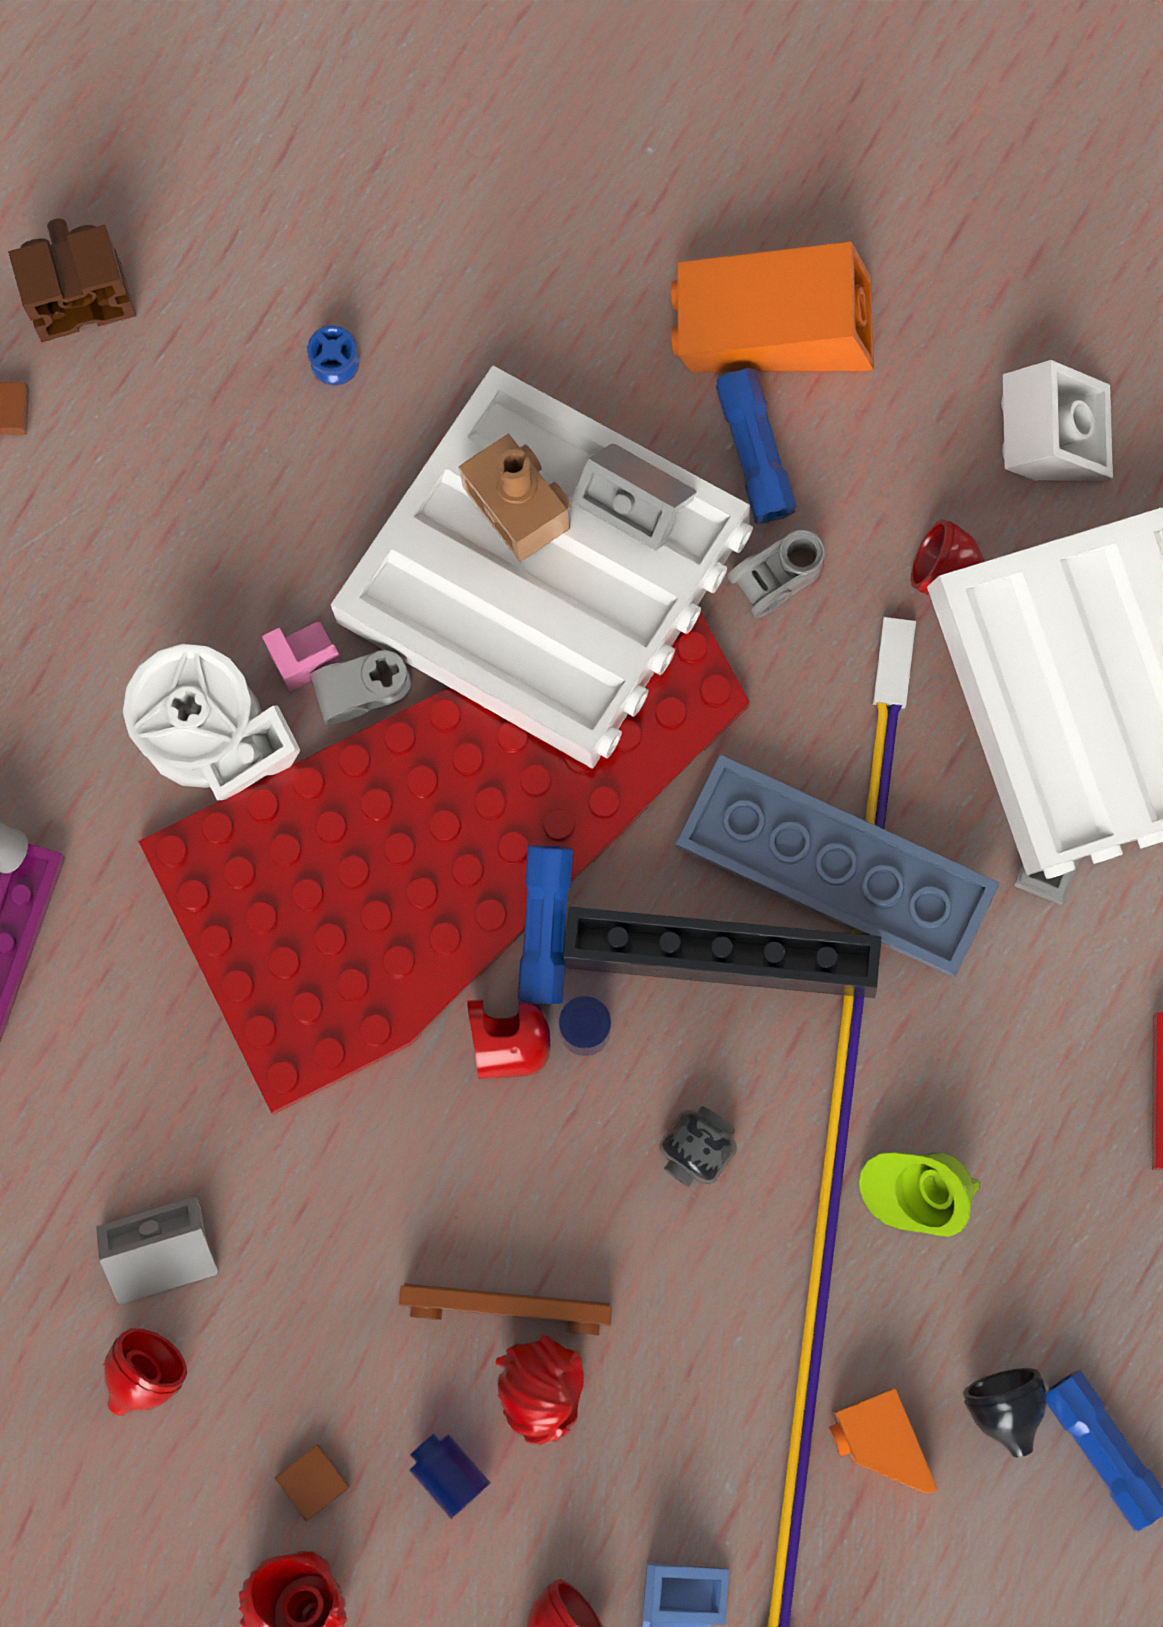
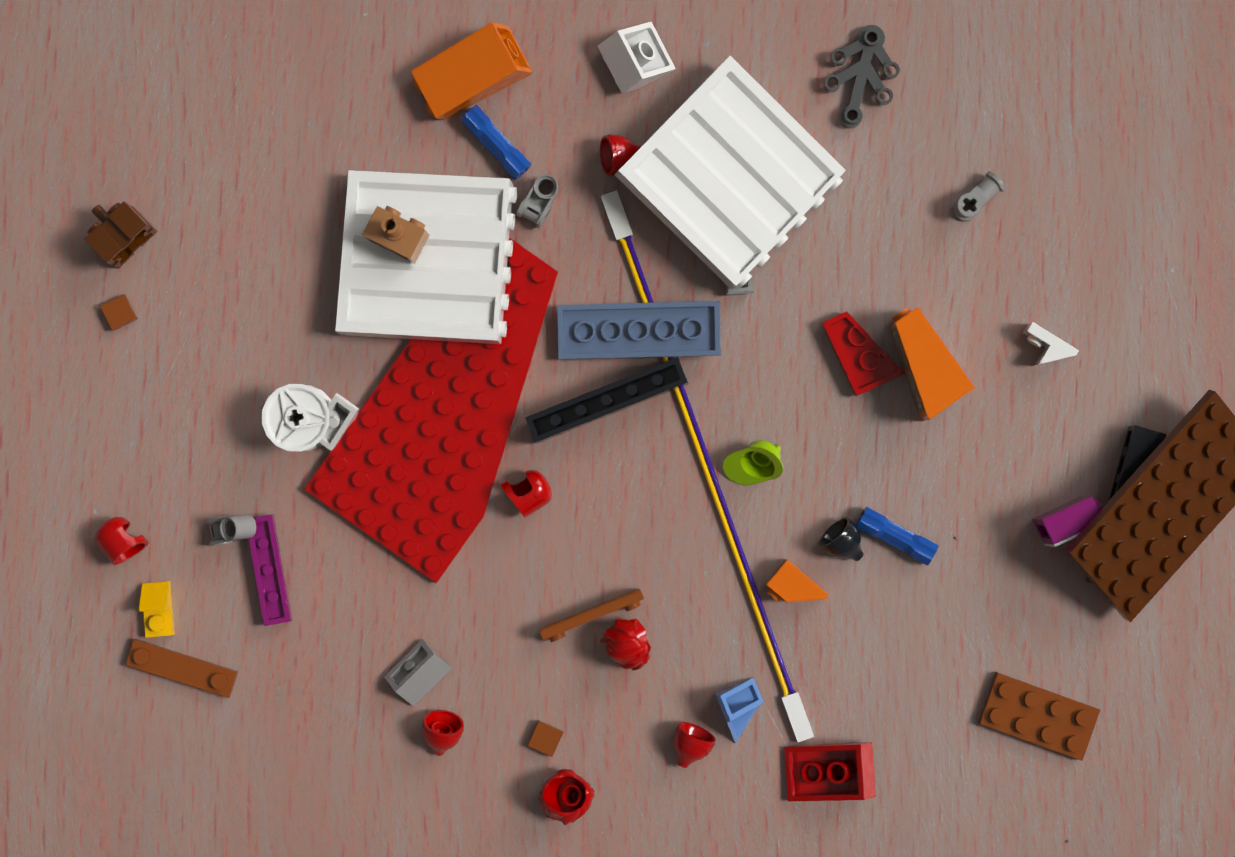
camera: 25 degrees left, 10 degrees up
(300, 653) = (332, 358): bright pink panel -> none
(329, 344) = (262, 199): blue wheel -> none
(354, 686) = (365, 364): light grey piece -> none
(447, 1474) = (605, 703): clear blue brick -> none
(545, 921) = (517, 429): blue axle -> none
(585, 1026) = (560, 467): clear blue brick -> none
(631, 495) = (451, 203): light grey panel -> none
(698, 1146) = (642, 495): dark grey head -> none

